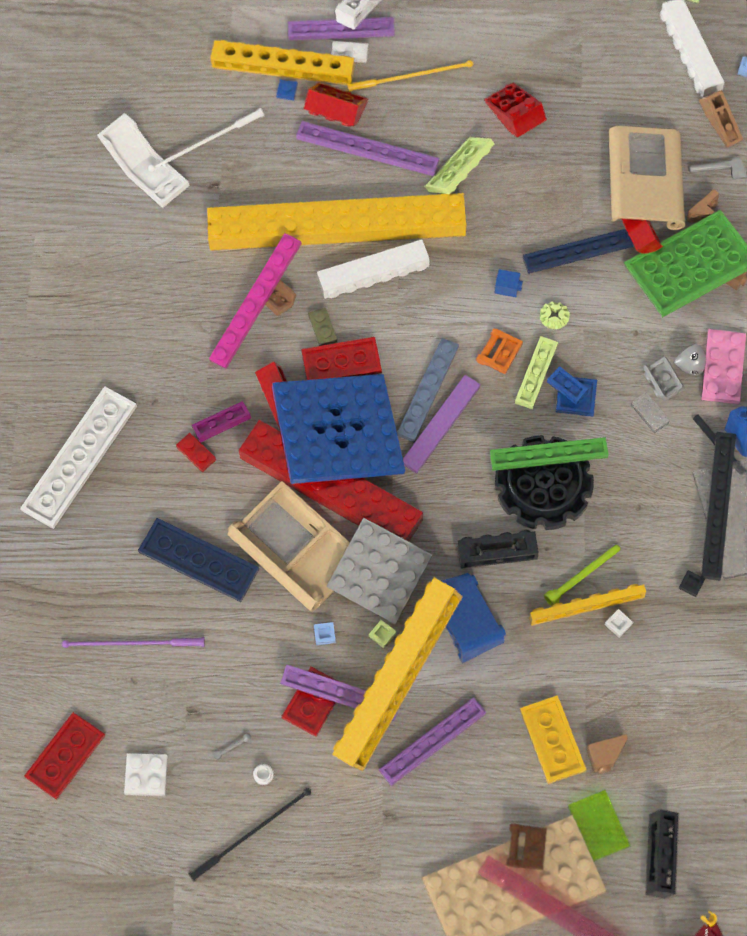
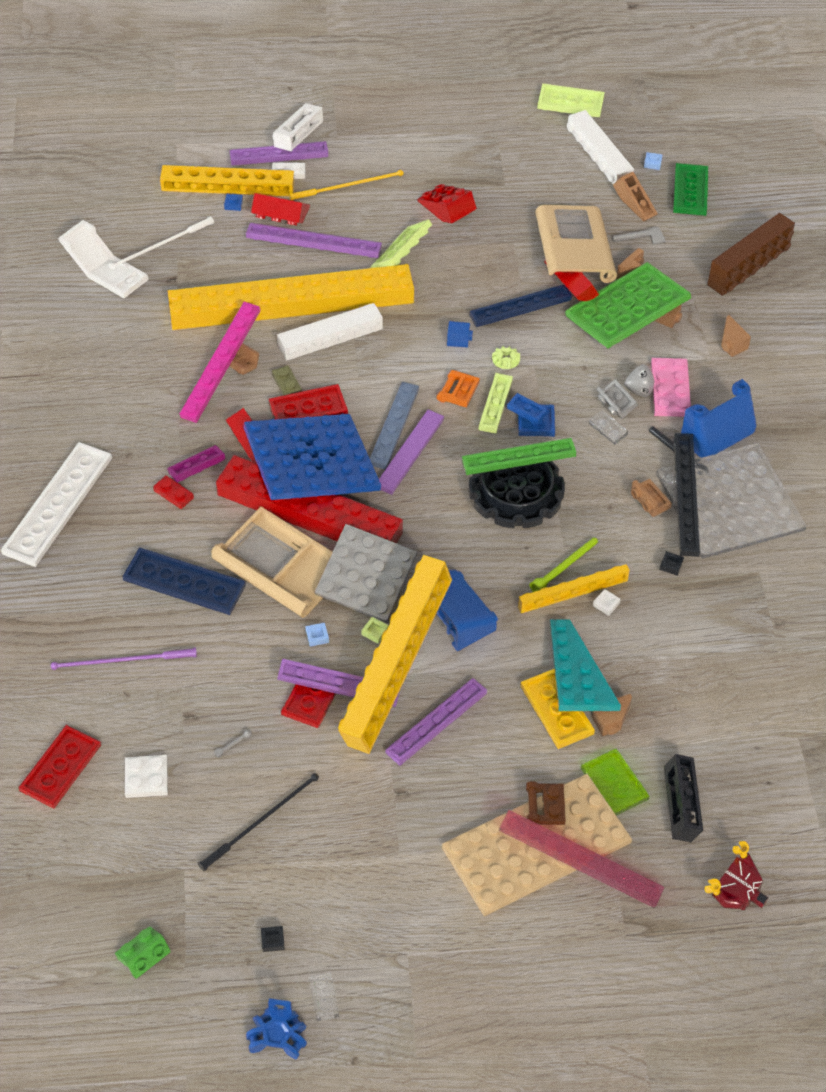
camera: 10 degrees left, 15 degrees down
(263, 774) = (267, 764): white plate -> none
(470, 547) = (480, 548): black brick -> none
(577, 712) = (577, 676): none -> teal wing
(681, 502) = (650, 497): none -> medium nougat bracket

